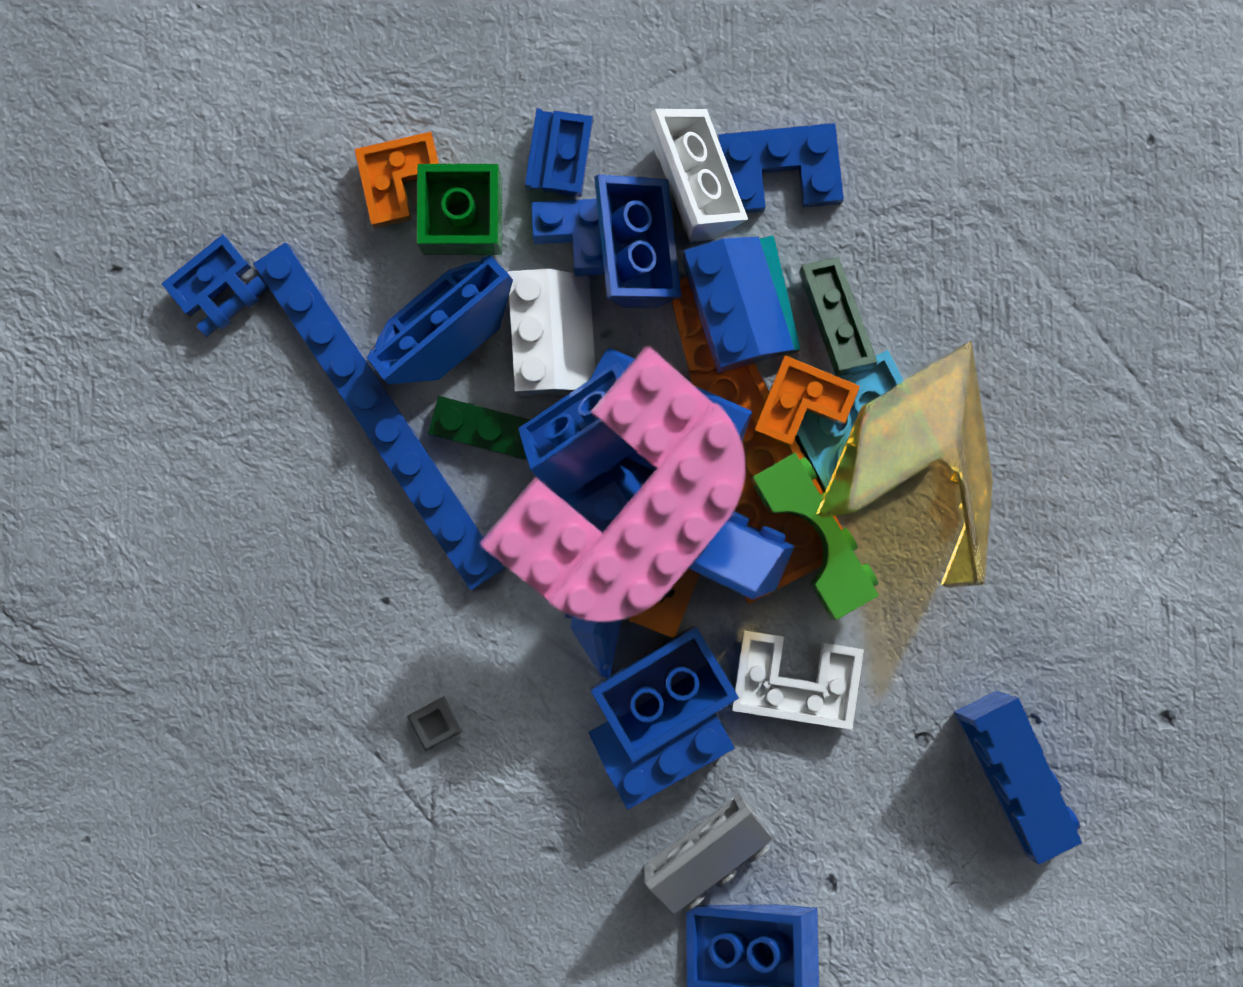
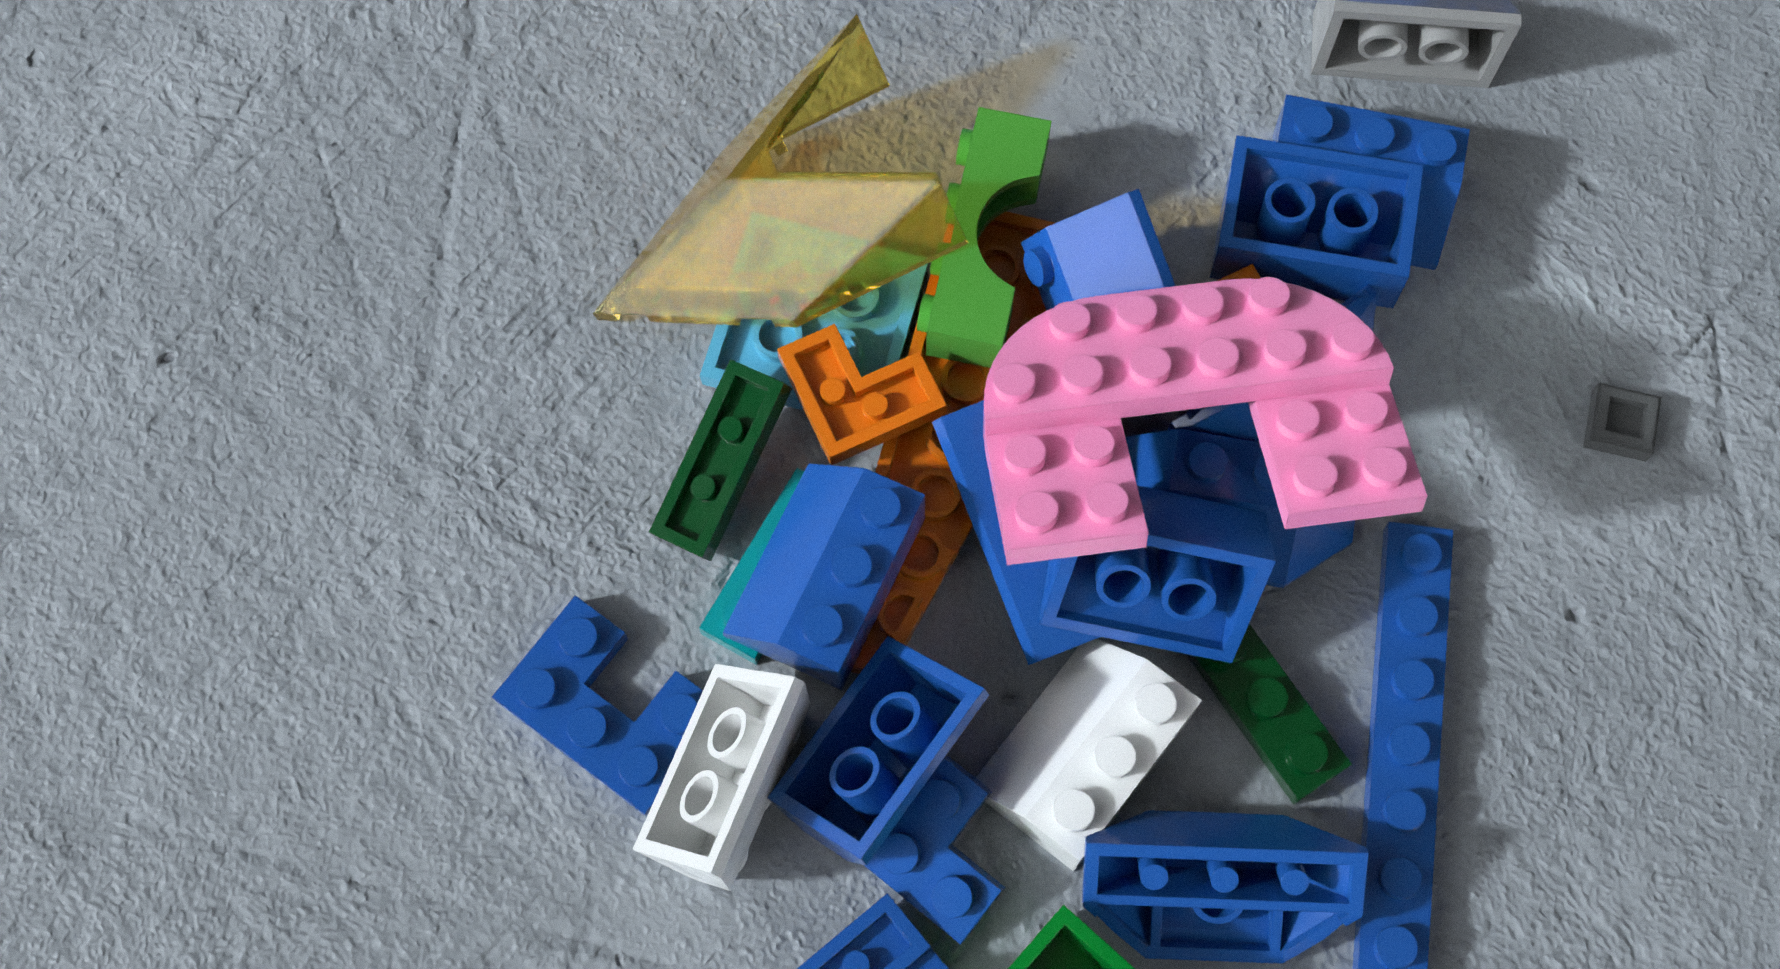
camera: 140 degrees left, 15 degrees down
(823, 702) = (1130, 76): white plate -> none

